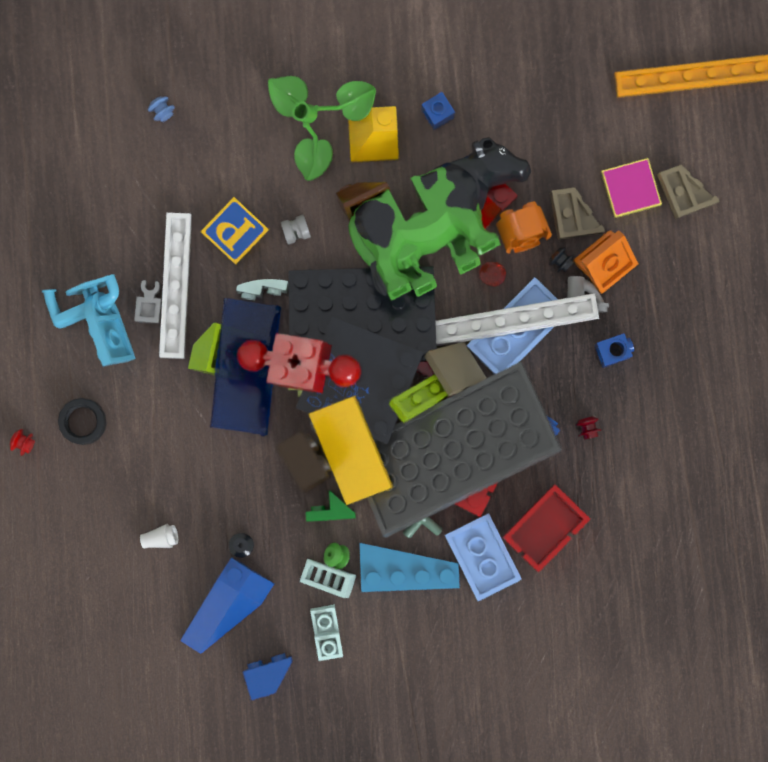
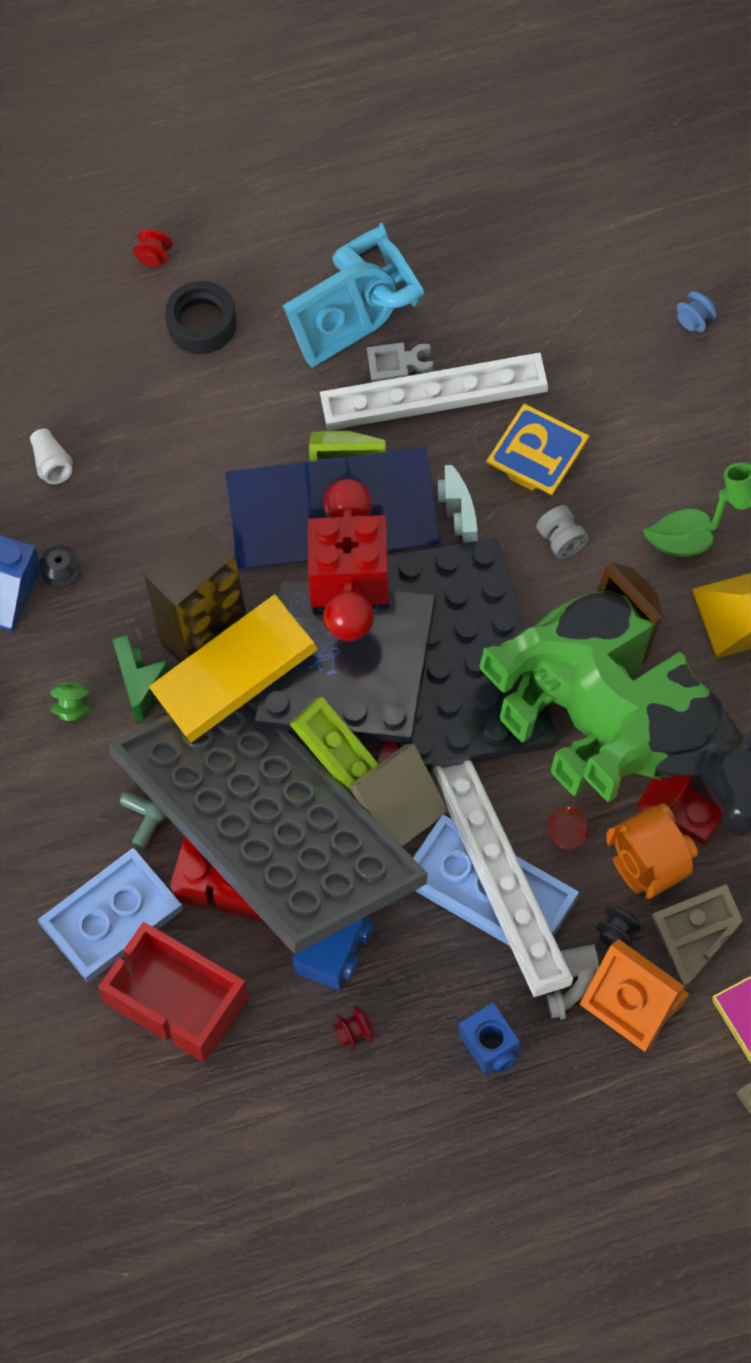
camera: 80 degrees right, 20 degrees down
(347, 585) = (30, 724): light aqua slope -> none
(397, 570) = (65, 800): dark azure wing -> none

